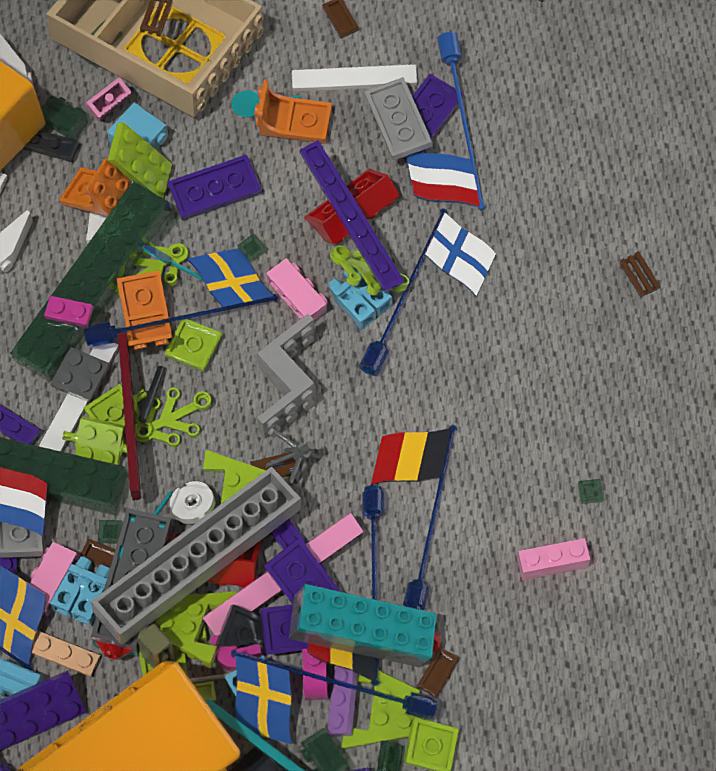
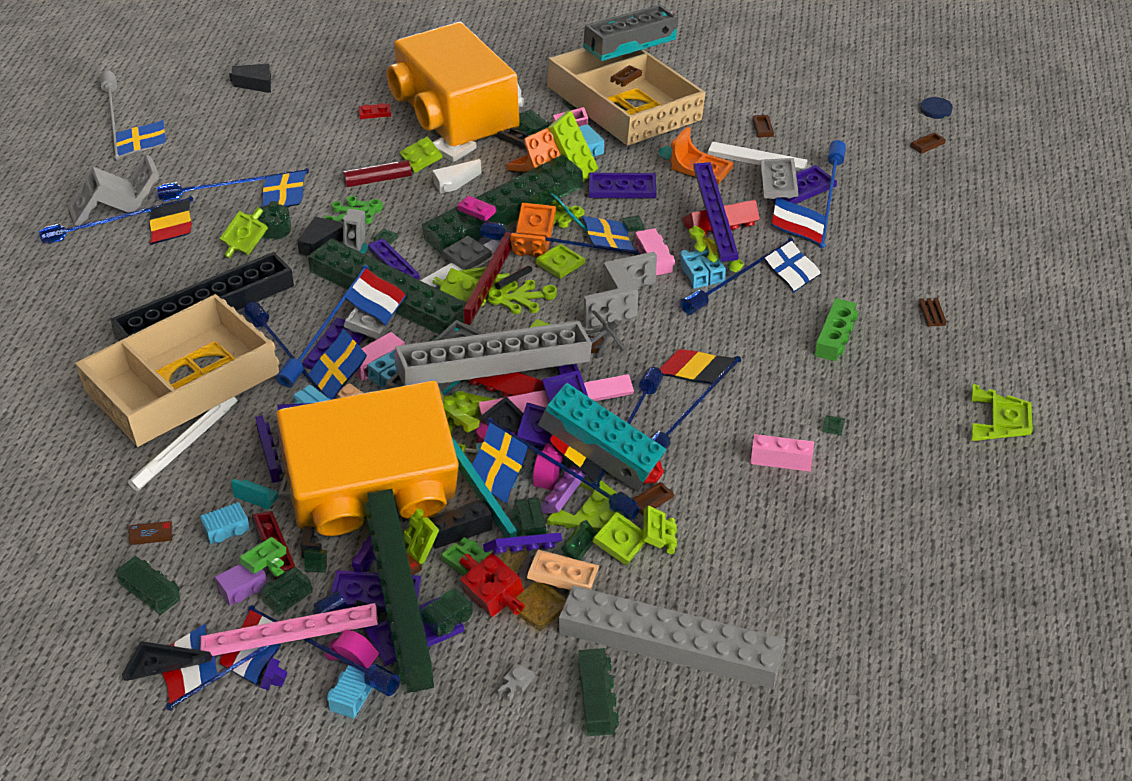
camera: 20 degrees right, 25 degrees down
(461, 721) = (658, 530): none -> lime plate
(542, 314) = (836, 330): none -> bright green brick

